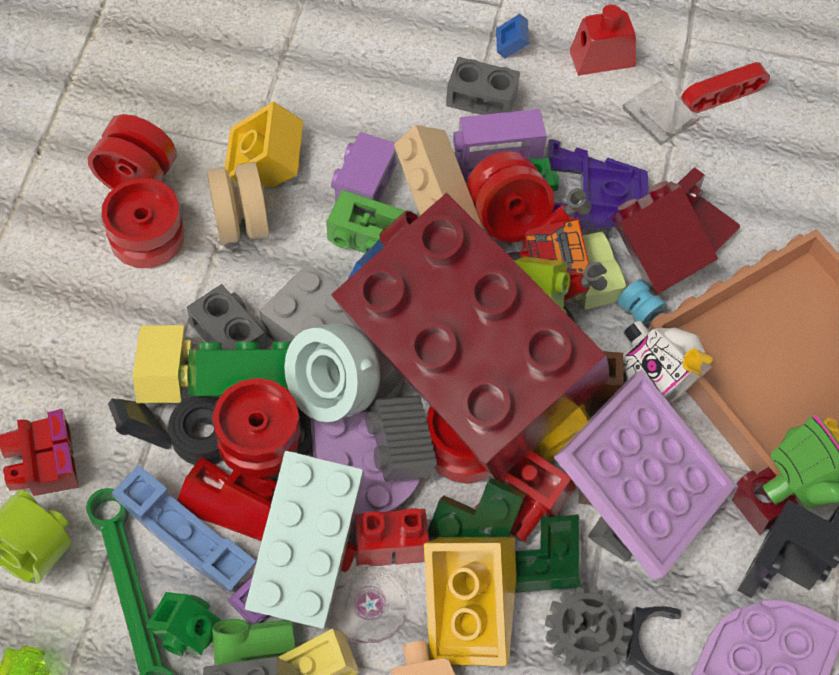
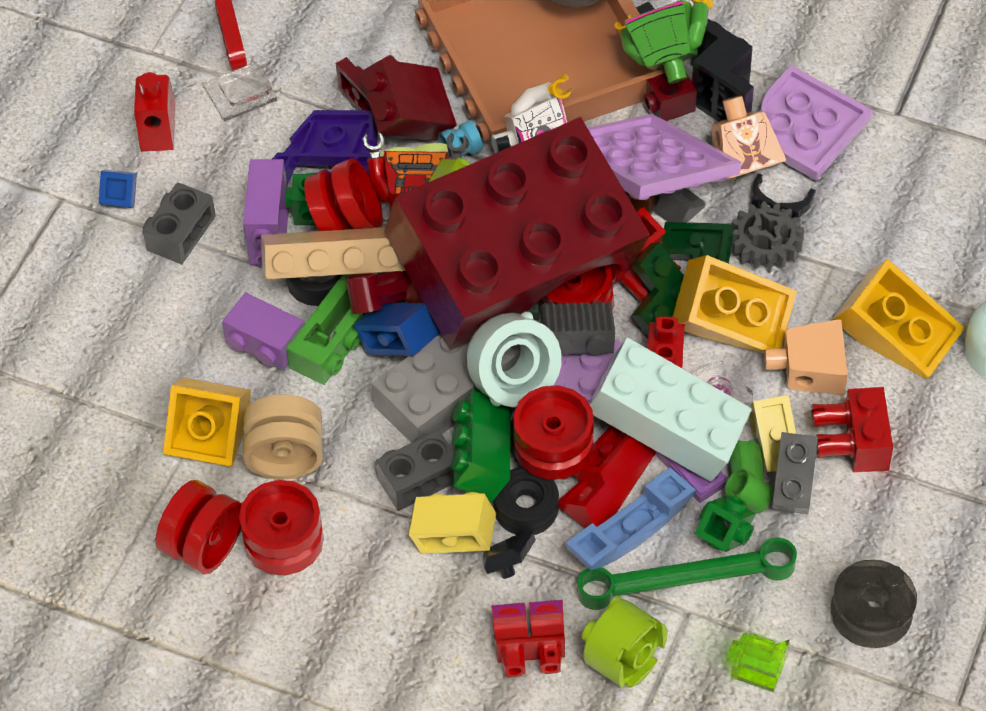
camera: 75 degrees left, 5 degrees down
(709, 583) = (746, 137): none -> light nougat torso

